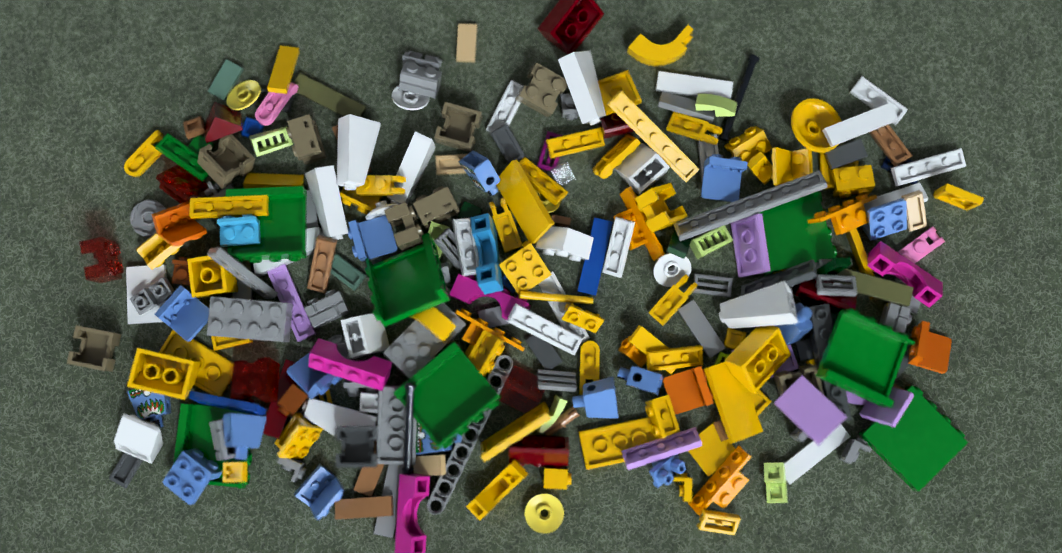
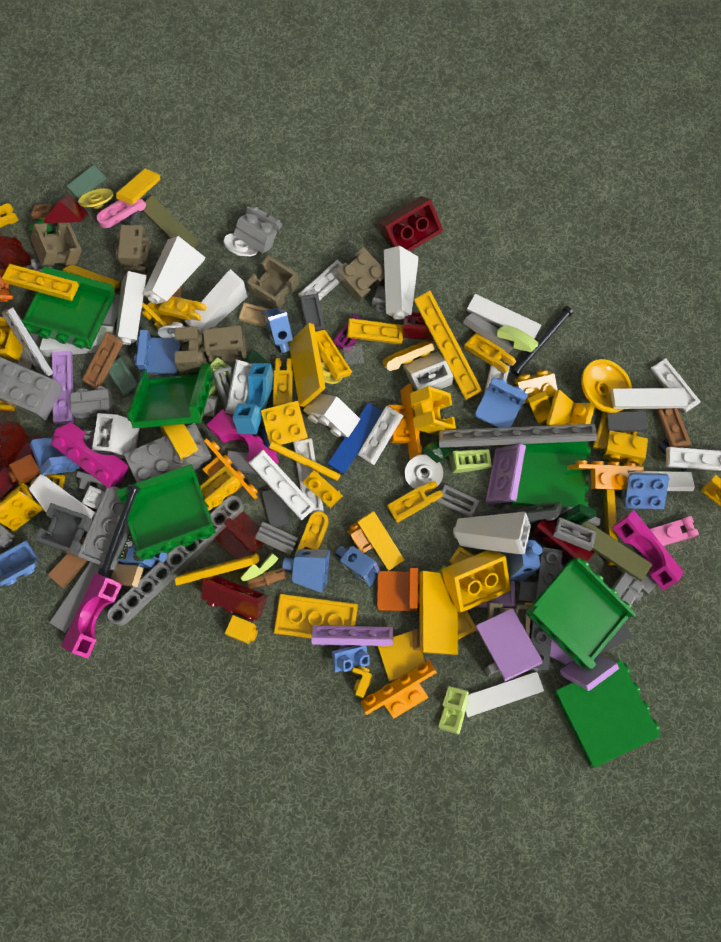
camera: 20 degrees right, 10 degrees down
(181, 155) = (20, 229): green tile -> none
(239, 230) = (40, 304): medium azure bracket -> none
(251, 127) = (92, 229): blue tile -> none
(272, 147) = (88, 248): yellowish green slope -> none
(364, 507) = (50, 594): medium nougat tile -> none
(466, 43) = (309, 217): tan tile -> none
(497, 489) = (181, 621): yellow arch -> none
(537, 521) = (207, 657): light yellow dish -> none
(561, 221) = (334, 392): medium nougat tile -> none
(612, 84) = (440, 294): yellow tile -> none
(660, 55) = (481, 279): yellow arch -> none
(662, 417) = (364, 606): yellow bracket -> none
(674, 358) = (396, 554): yellow tile -> none
(701, 329) = (432, 538): light grey tile -> none
(721, 519) = (369, 719): yellow tile -> none
(851, 451) = (539, 706): light grey bracket -> none
(915, 210) = (677, 495): tile -> none
(930, 349) = (650, 631): orange bracket -> none

